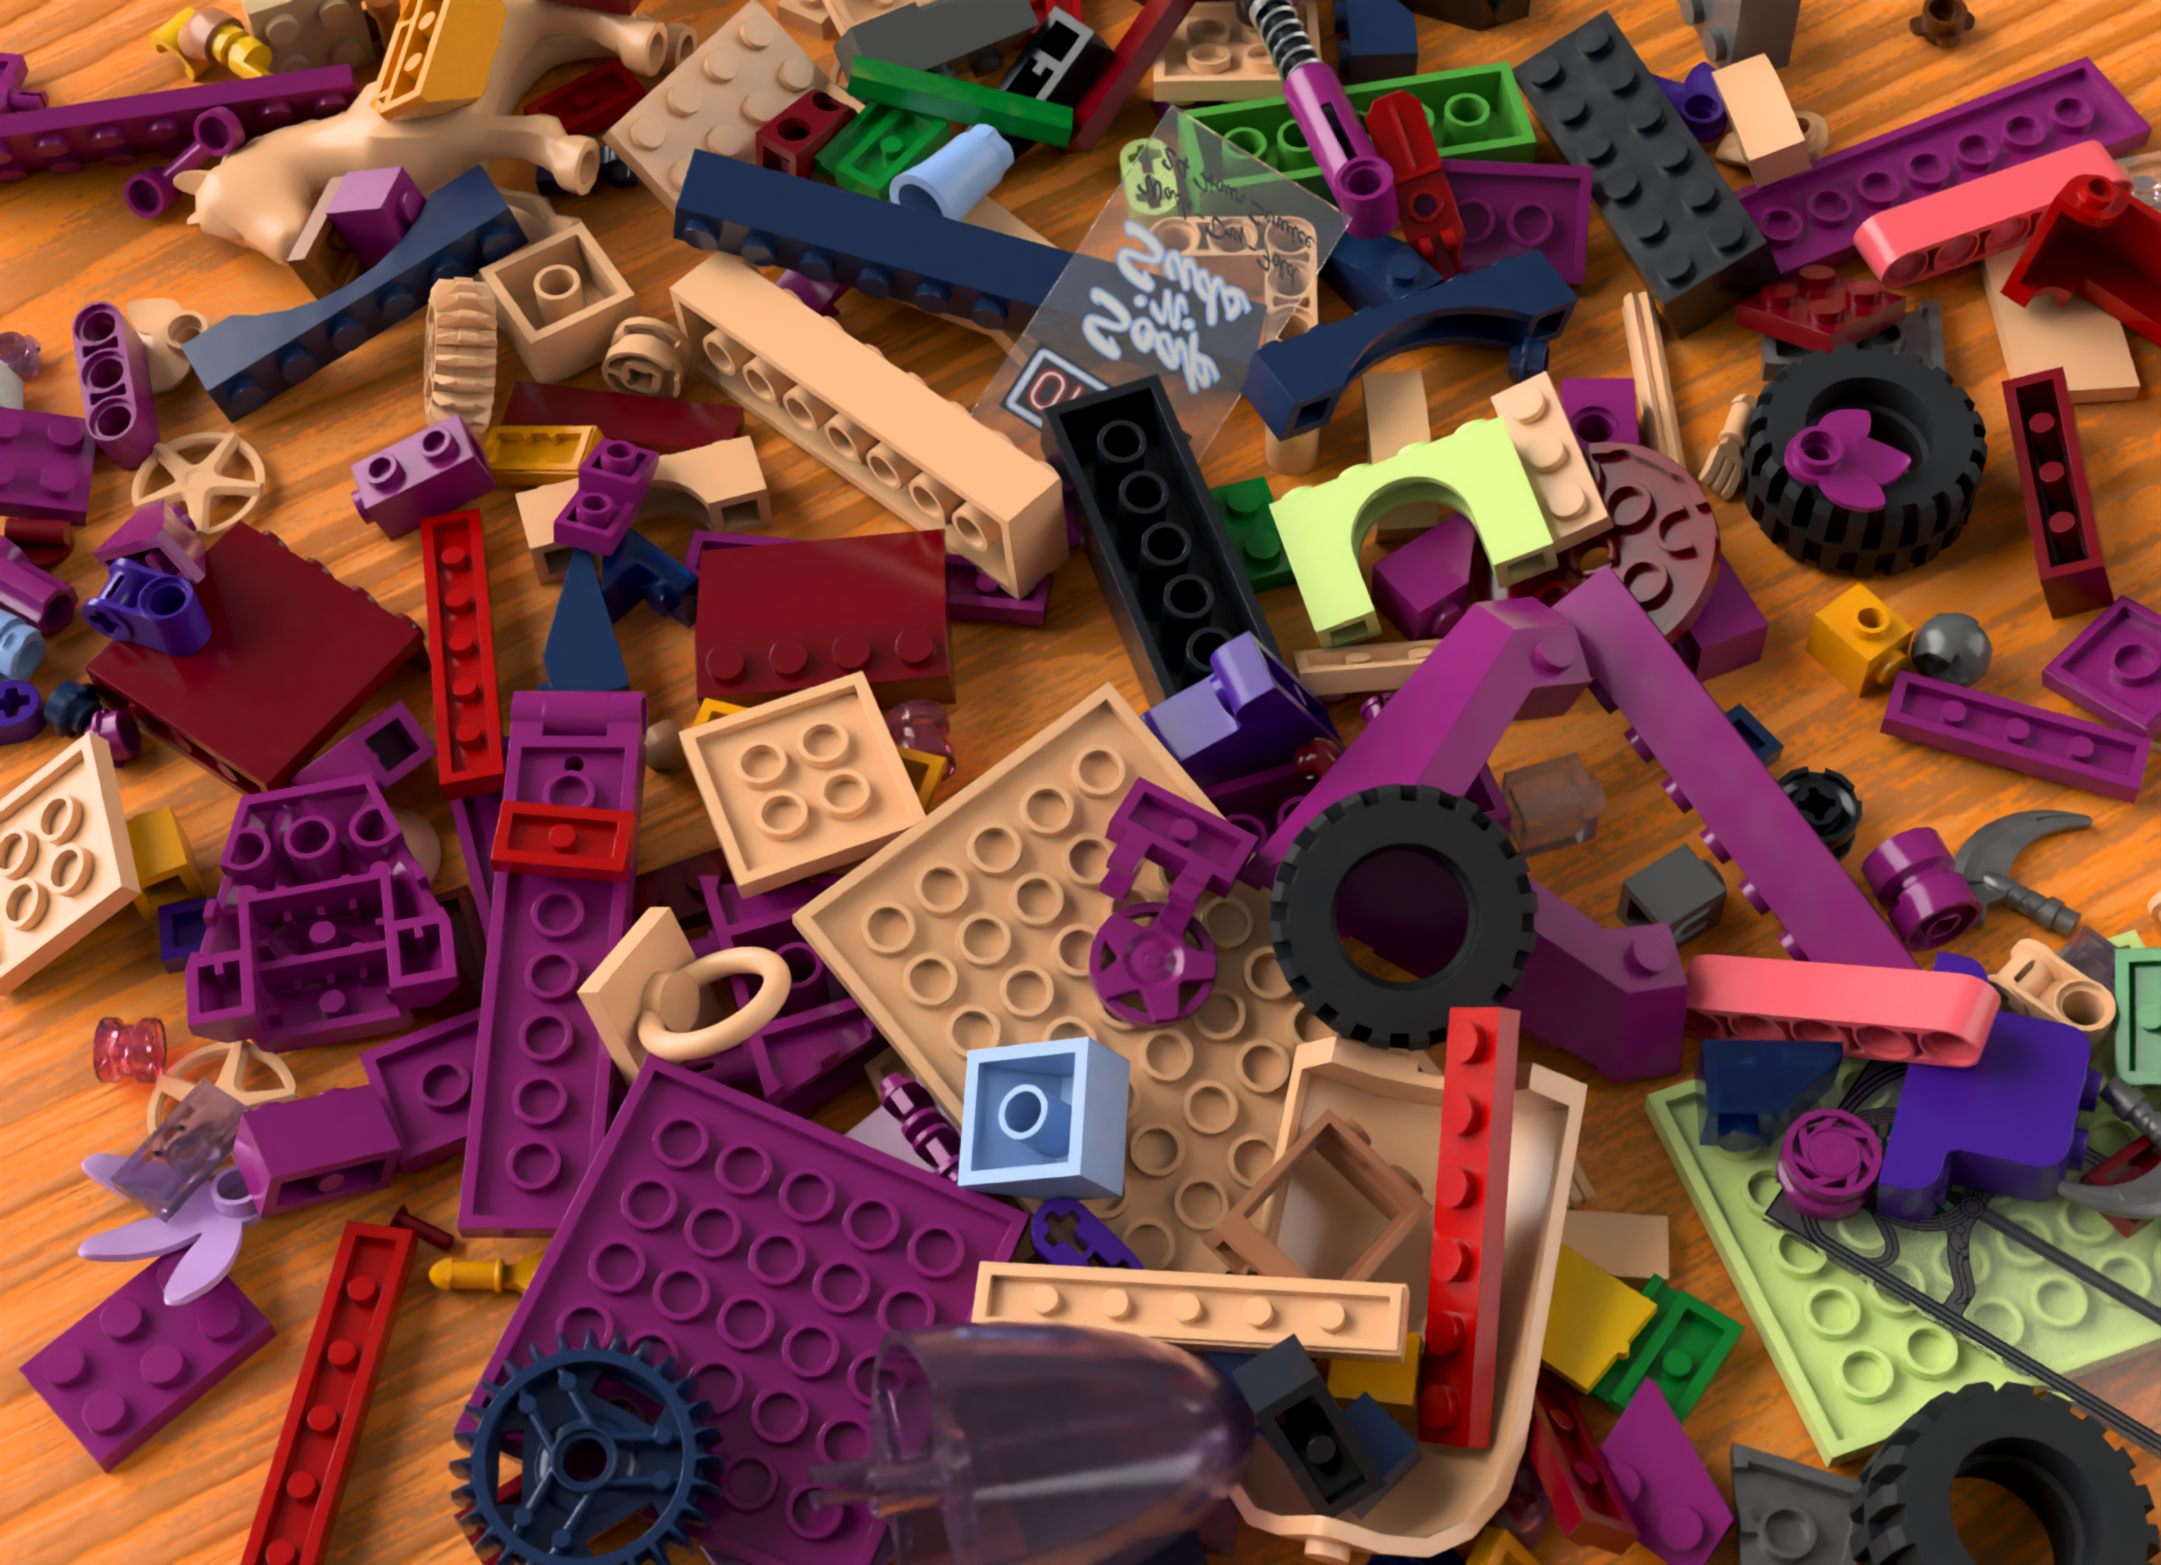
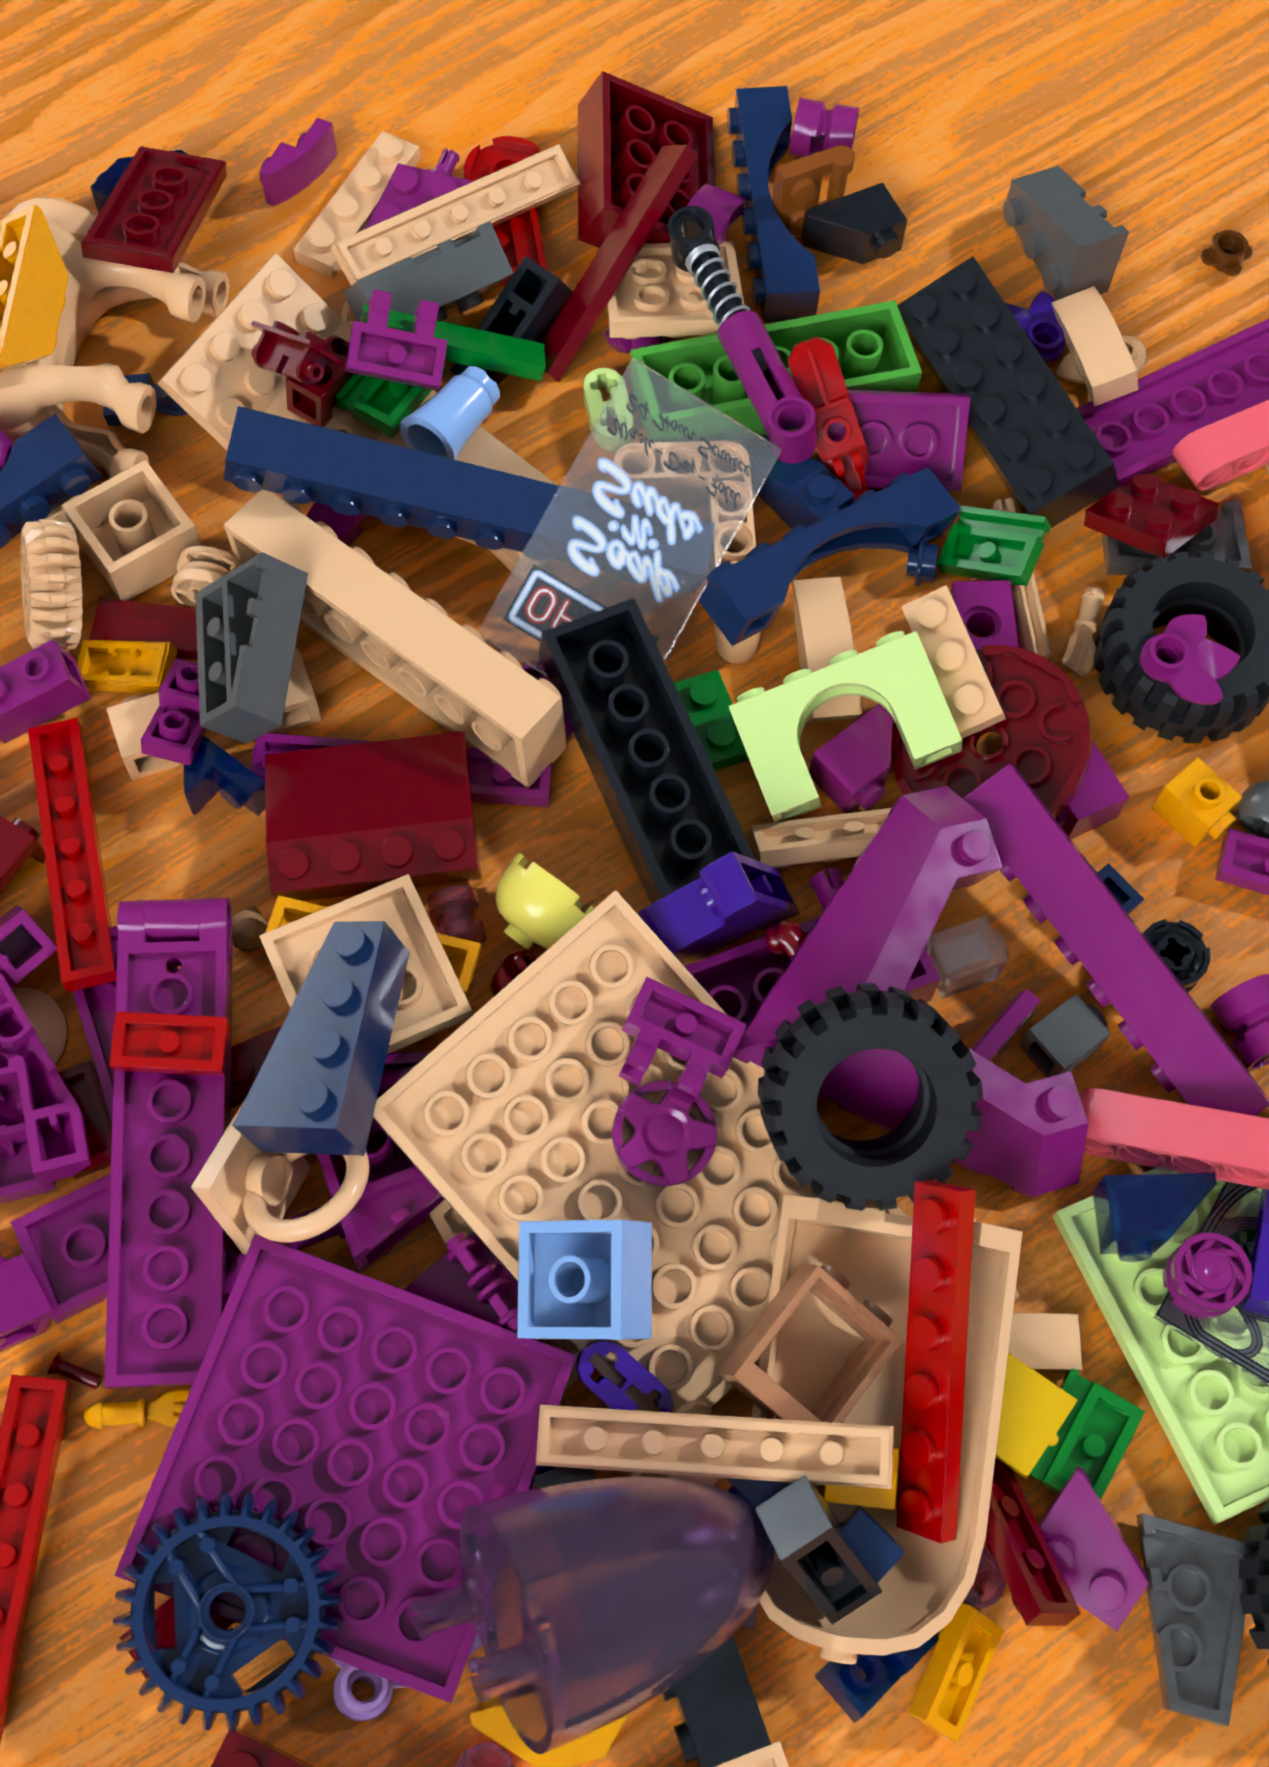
camera: 10 degrees left, 10 degrees up
(581, 640) = (172, 845): dark blue slope -> none
(591, 100) = (142, 341): red plate -> none
(689, 419) = (248, 646): none -> dark grey wedge
(753, 845) = (332, 1048): none -> dark blue wedge
(764, 102) = (292, 355): none -> dark red hinge
(891, 106) = (394, 353): none -> magenta plate
(1011, 710) = (536, 904): none -> light yellow cylinder
(1602, 879) = (1007, 1025): none -> magenta tile
(1618, 340) = (994, 545): none -> green plate

